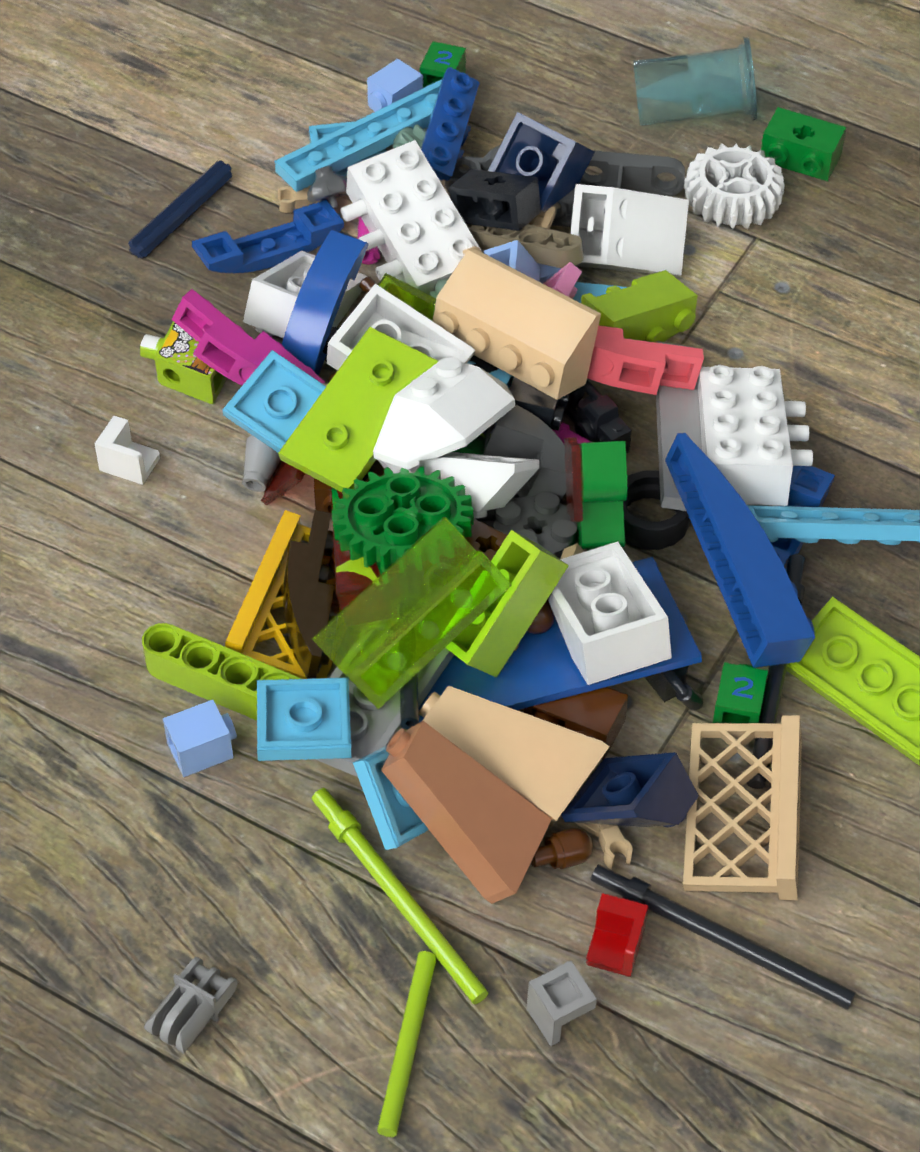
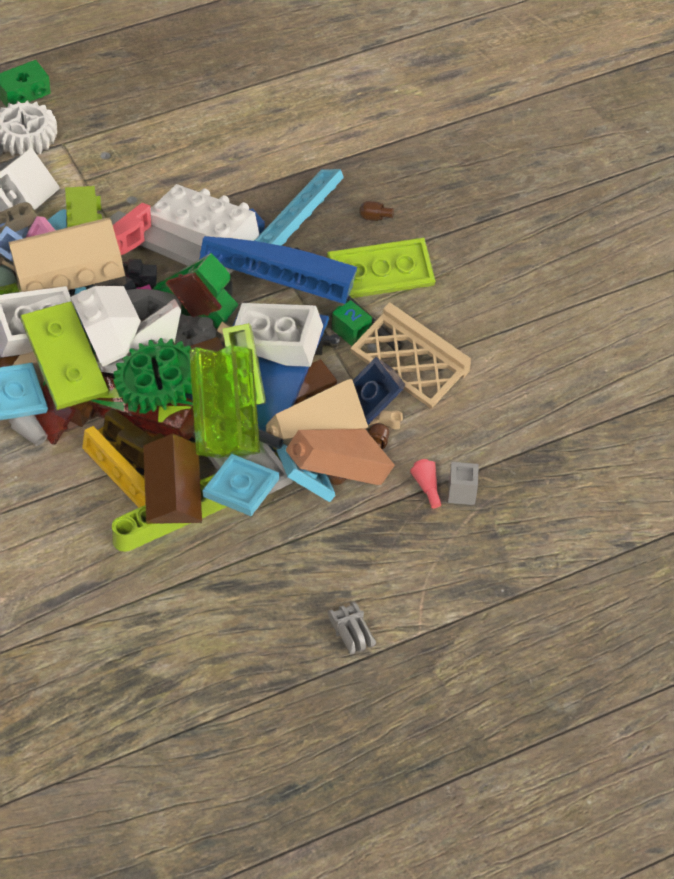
camera: 60 degrees left, 0 degrees up
(199, 737) = (194, 546): light blue brick -> none
(257, 643) = (172, 481): none -> reddish brown slope
(347, 830) = (296, 515): lime bar -> none
(406, 1044) = (433, 556): lime bar -> none
(540, 948) = (425, 475): none -> coral cone
(617, 935) = (441, 443): red panel -> none
(641, 892) = (424, 424): black bar -> none

